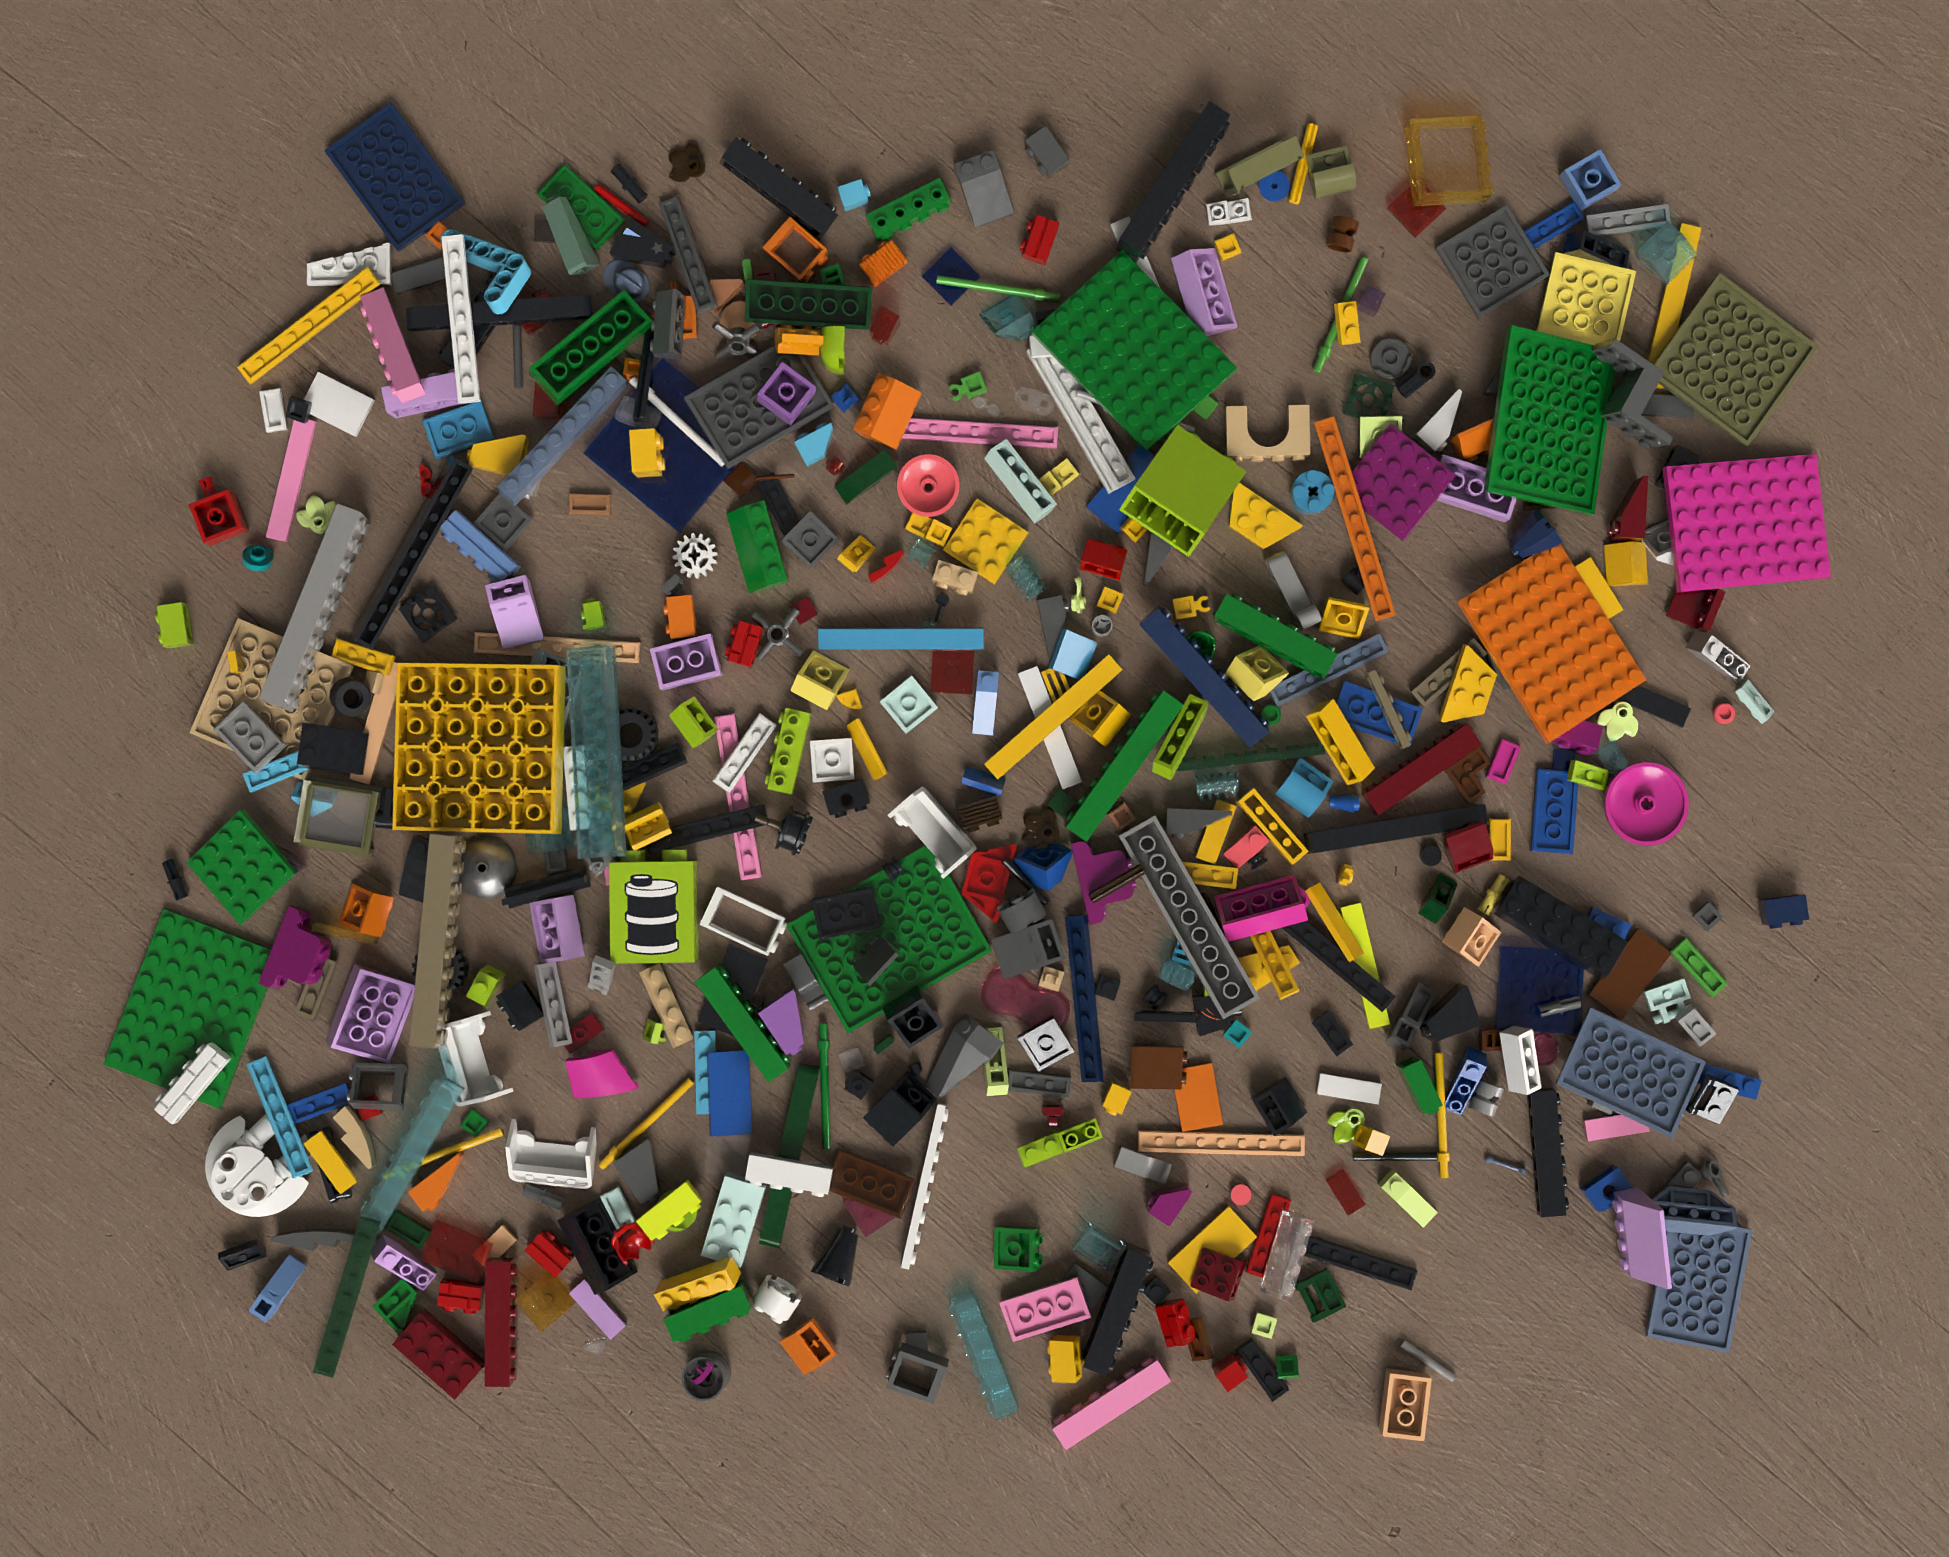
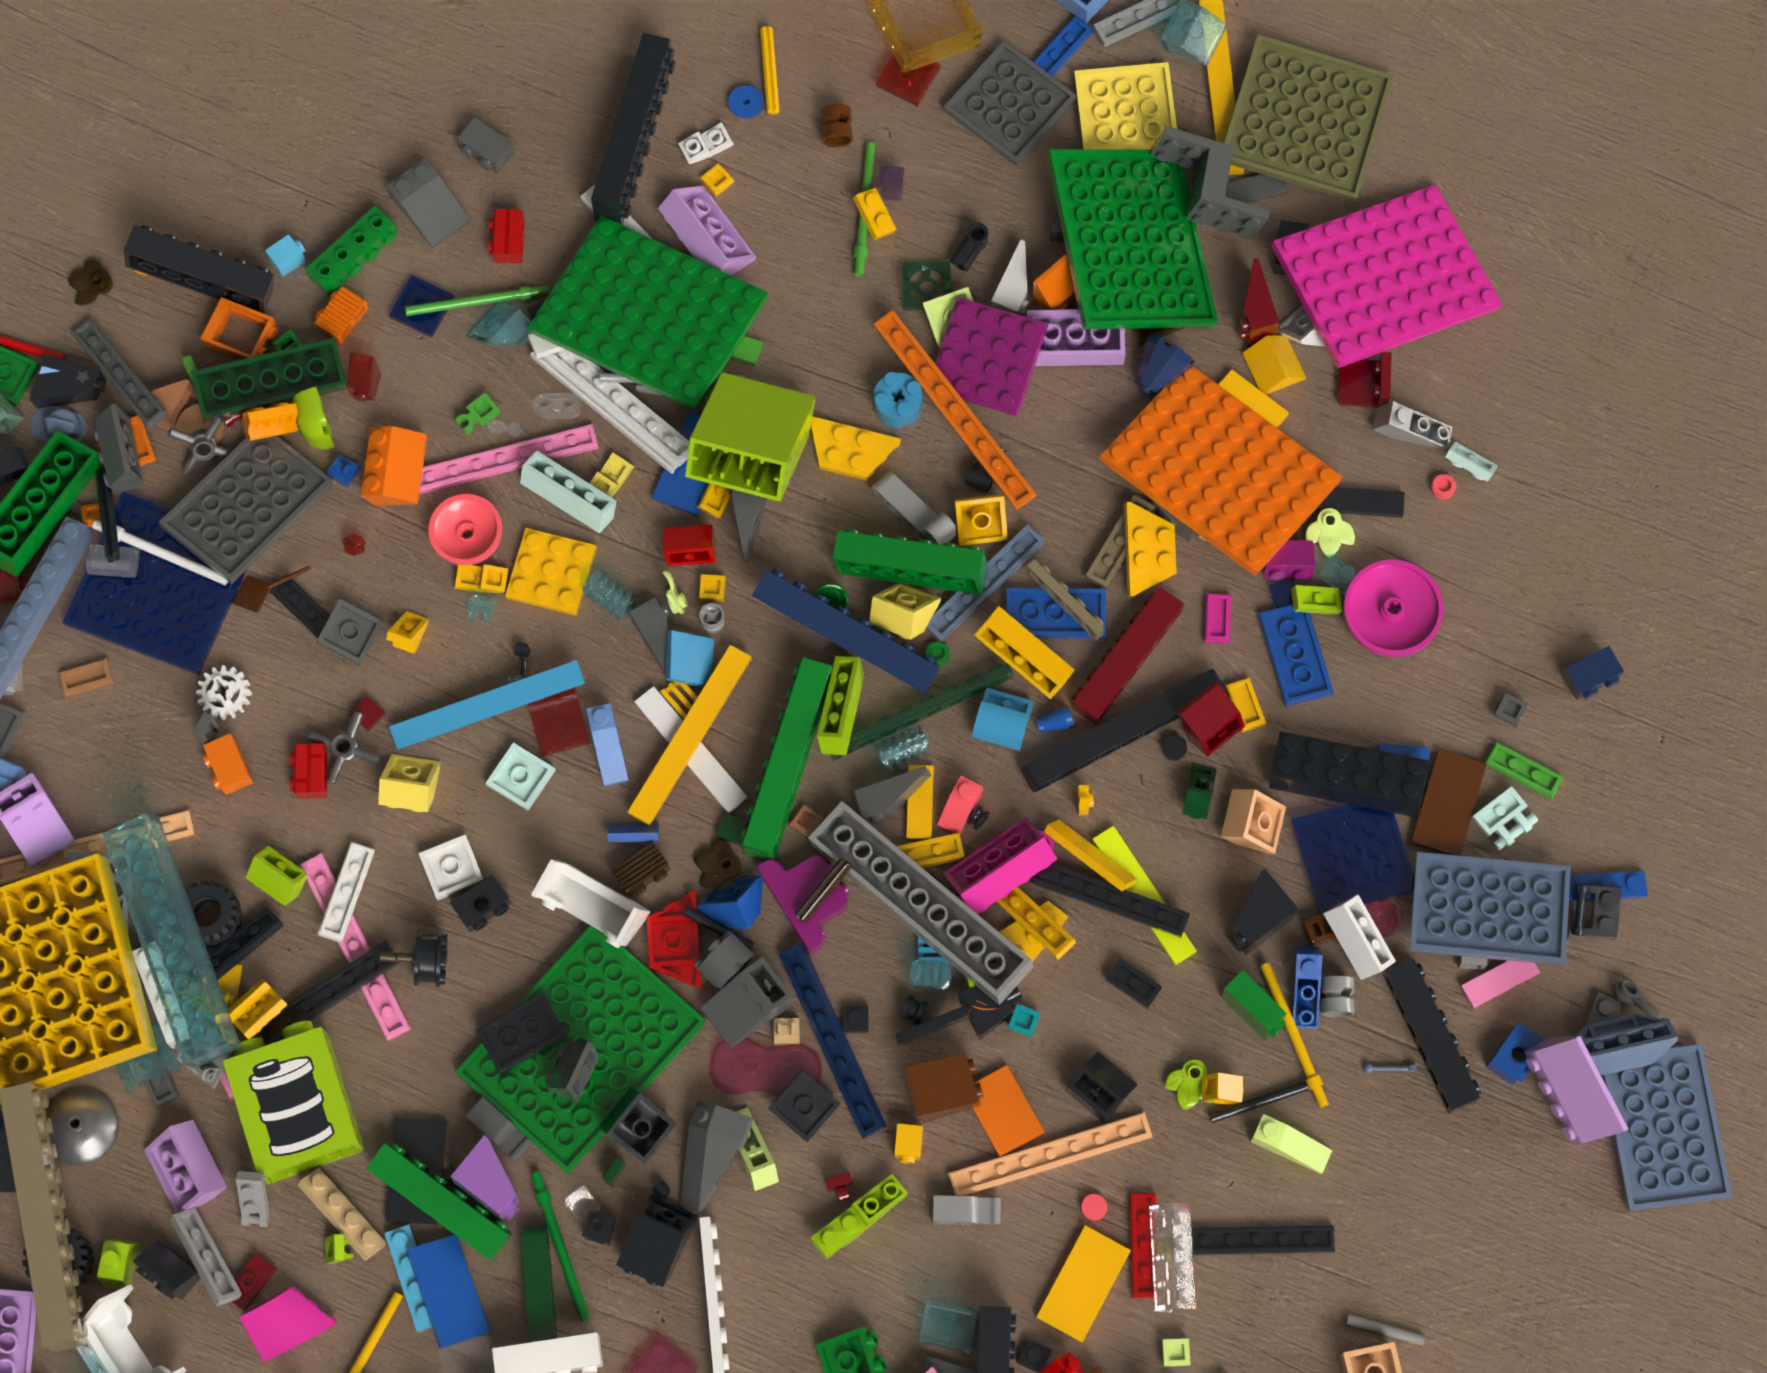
camera: 15 degrees left, 15 degrees down
(546, 887) = (145, 1131): black fence -> none
(592, 614) = (124, 796): lime brick -> none
(629, 183) = (32, 322): black pin -> none
(646, 453) = (133, 593): yellow brick -> none
(686, 662) = (248, 811): lavender brick -> none
(711, 911) = (363, 1077): white window -> none
(757, 547) = (292, 660): green slope -> none
(786, 393) = (273, 479): medium lavender brick -> none
(789, 751) = (398, 873): lime brick -> none
(815, 445) = (324, 529): medium azure slope -> none
(850, 699) = (451, 794): yellow tile -> none
(866, 477) = (393, 544): dark green slope -> none
(866, 749) = (488, 842): yellow slope -> none
(870, 1184) = (651, 1342): reddish brown tile -> none
(891, 562) = (450, 628): red slope -> none
(893, 868) = (559, 962): black wheel -> none
(955, 577) = (528, 619): tan brick -> none
(1039, 1083) = (813, 1158): dark grey tile -> none
(1101, 718) = (745, 718): yellow slope -> none
(1167, 1202) = (1008, 1242): magenta slope -> none
(1186, 607) = (802, 568): yellow plate -> none
(1218, 1274) = (1100, 1308): dark red bracket -> none
(1241, 446) = (805, 378): tan arch -> none
(1259, 165) = (720, 79): olive piece -> none
(1272, 826) = (995, 779): yellow brick -> none
(1326, 1292) = (1236, 1288): dark green plate -> none
(1331, 172) = (802, 67): olive brick -> none
(1345, 1192) = (1215, 1163): clear red tile -> none
(1349, 1088) = (1176, 1041): white tile -> none
(1390, 358) = (936, 236): dark grey tile -> none
(1411, 1016) = (1217, 934): dark grey slope -> none
(1463, 772) = (1176, 644): reddish brown plate -> none
(1493, 894) = (1261, 766): light yellow pin -> none
(1559, 1006) = (1381, 861): dark grey axle -> none
(1594, 248) = (1110, 52): black slope -> none
(1695, 1025) = (1544, 833): light grey plate -> none

